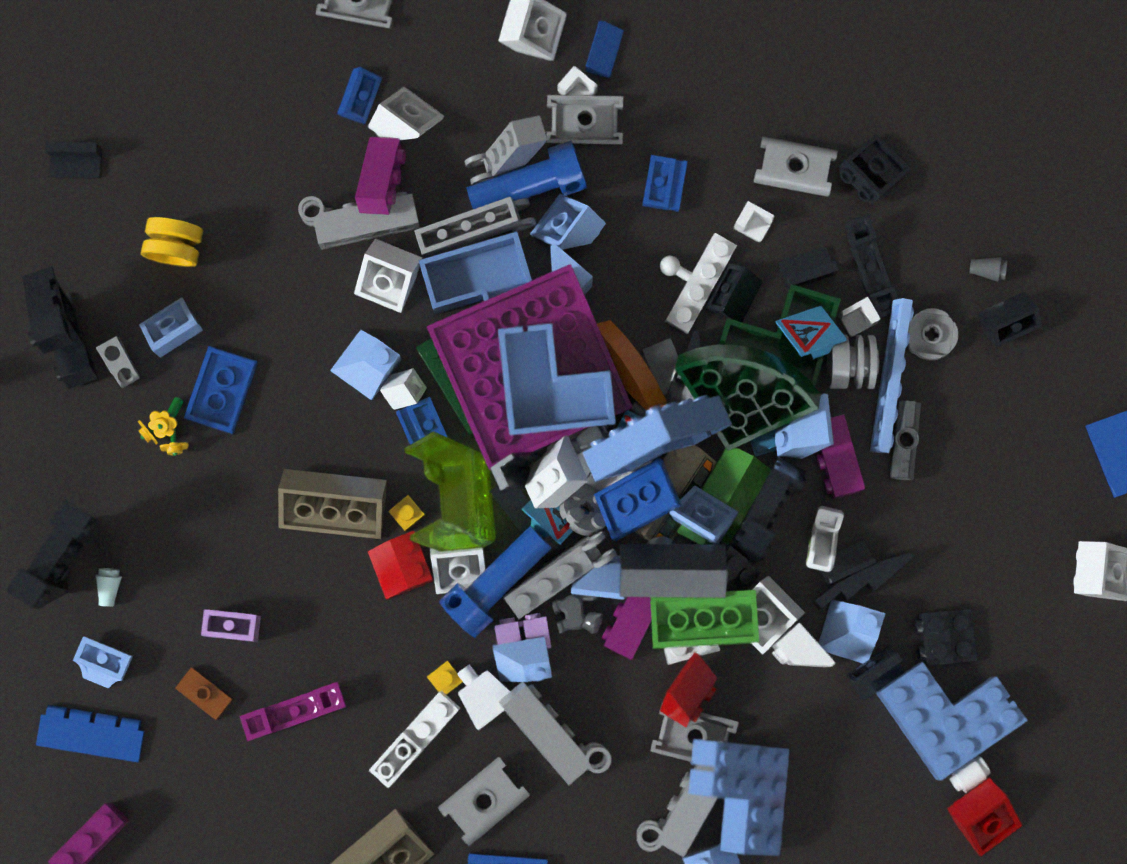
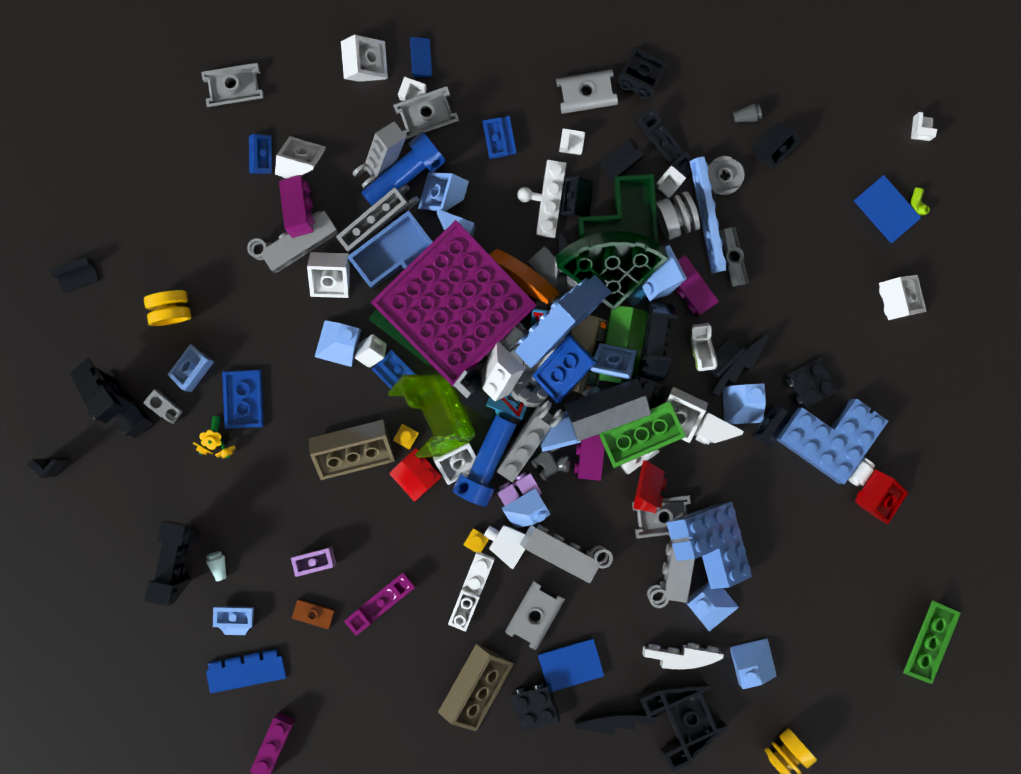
camera: 20 degrees left, 5 degrees up
(538, 397) = (472, 323): medium blue piece -> none
(811, 332) = (642, 205): dark azure piece -> none

